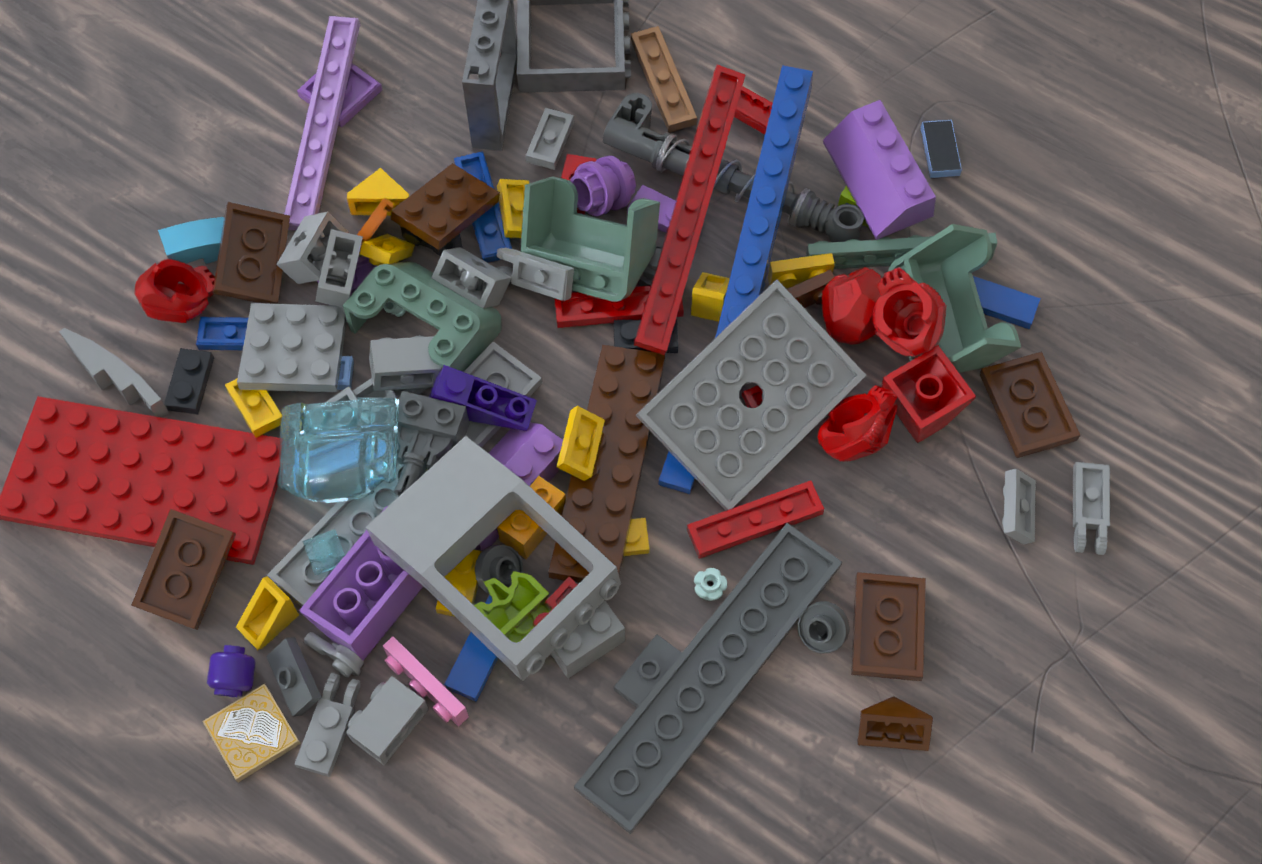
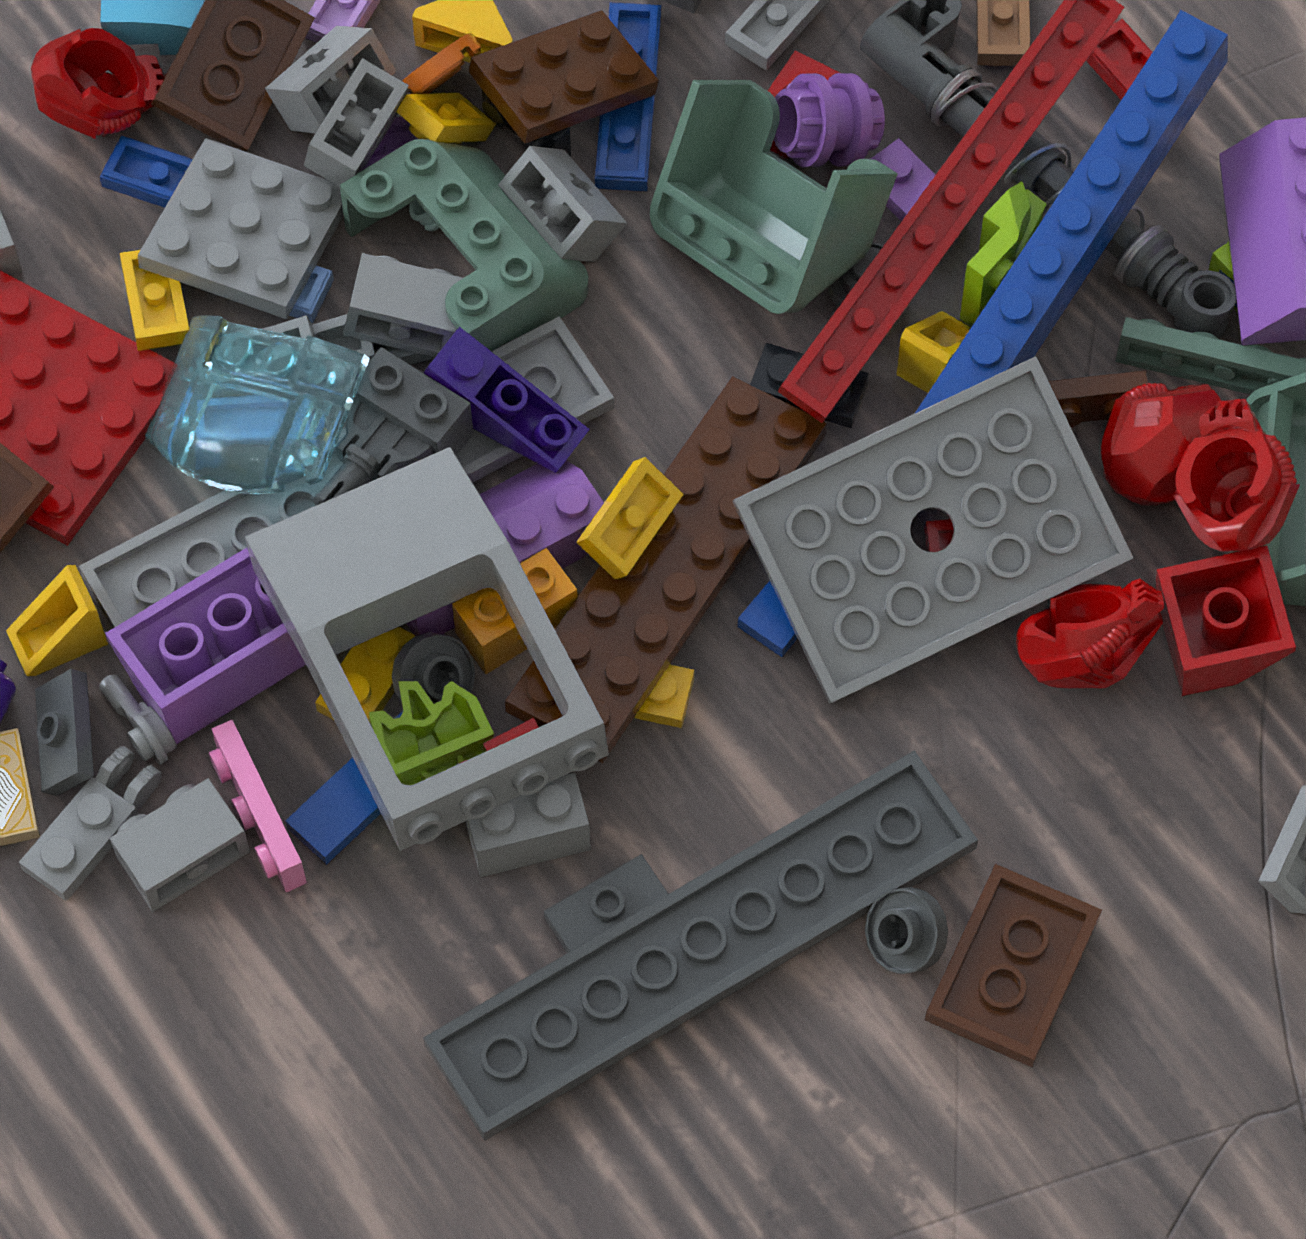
camera: 20 degrees right, 0 degrees up
(189, 381) = (69, 231): black plate -> none
(324, 551) = (176, 557): clear light blue plate -> none
(512, 205) = (668, 105): yellow plate -> none
(537, 274) = (668, 230): light grey hinge -> none
(591, 310) = (722, 311): red plate -> none
(710, 592) = (755, 820): light aqua plate -> none
(725, 230) = (1003, 236): none -> lime plate
(755, 519) = (867, 729): red plate -> none
(797, 270) = (1090, 354): yellow plate -> none
(895, 725) = (959, 1119): reddish brown slope -> none

